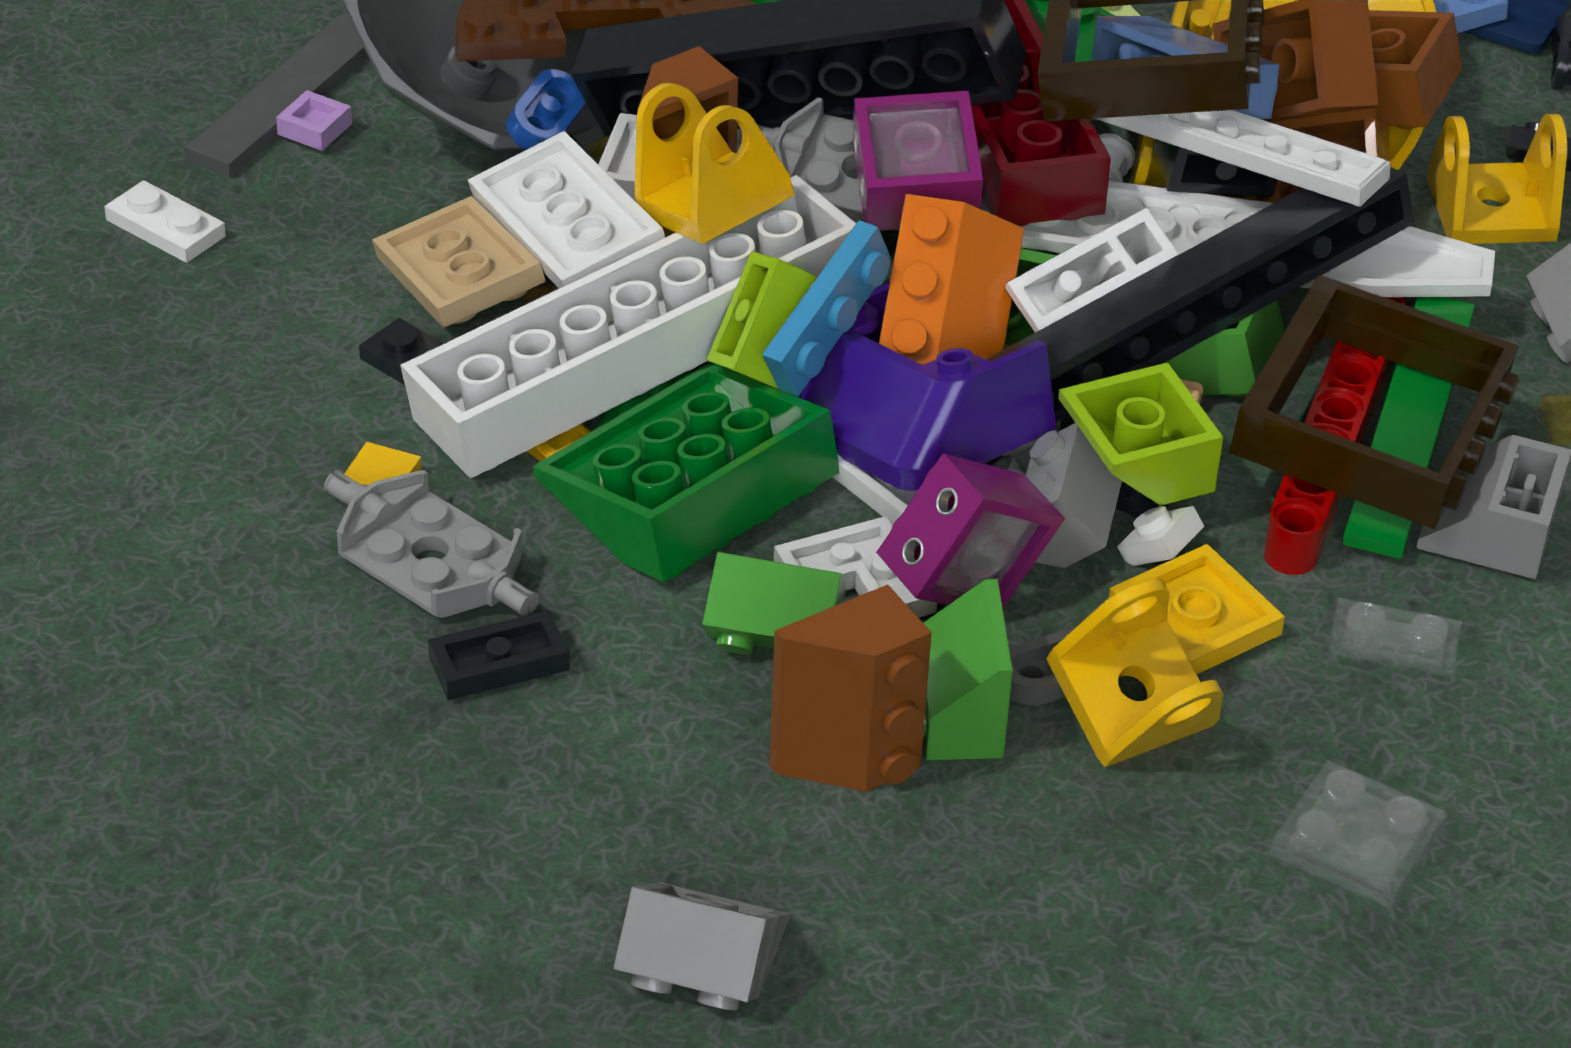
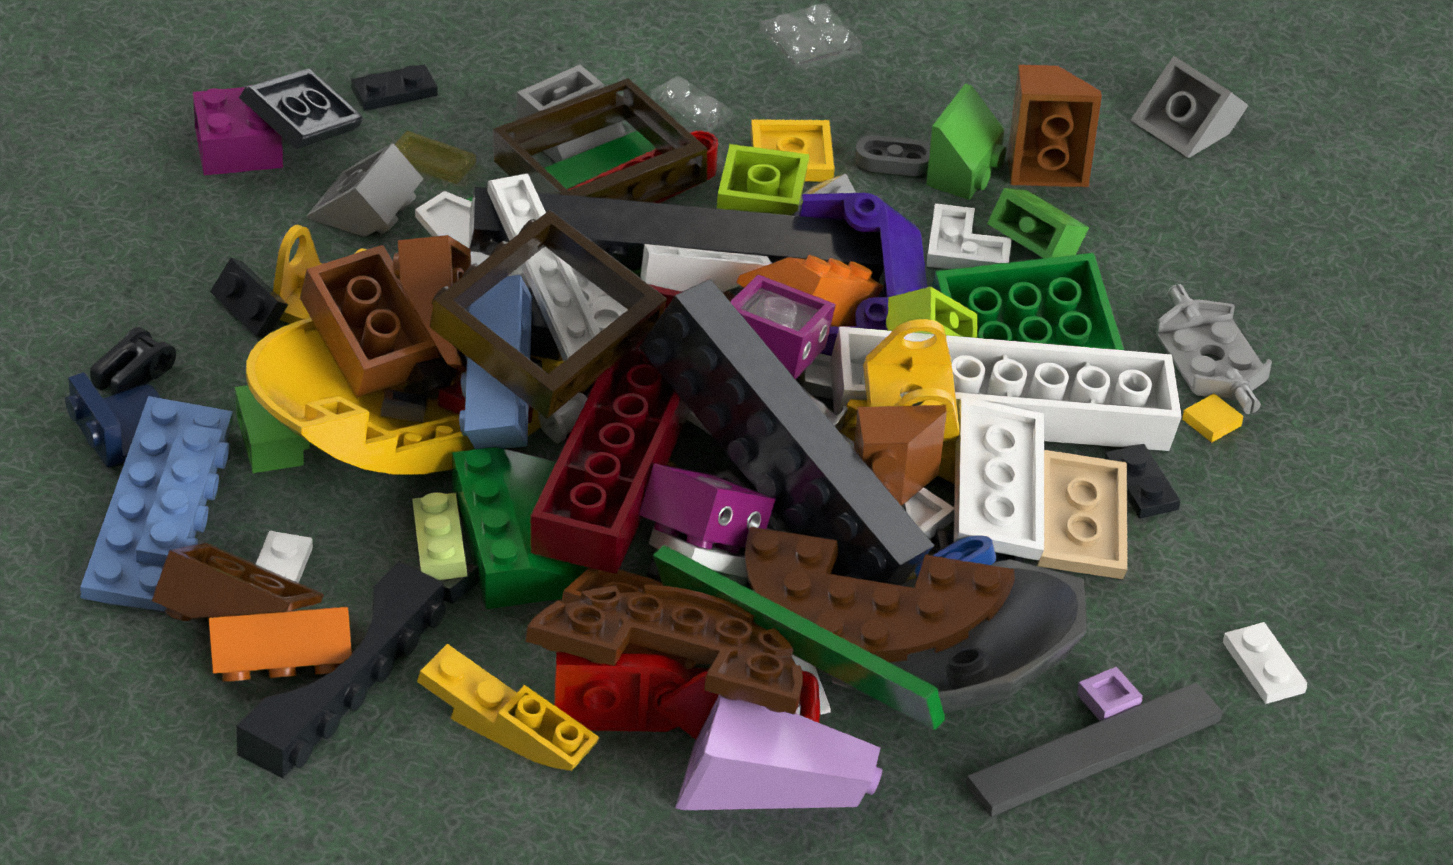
camera: 150 degrees left, 0 degrees up
(498, 654) = (1209, 280): black plate -> none
(828, 308) = (873, 284): dark azure plate -> none
(969, 528) = (912, 178): magenta piece -> none
(1138, 645) = (871, 106): yellow hose -> none

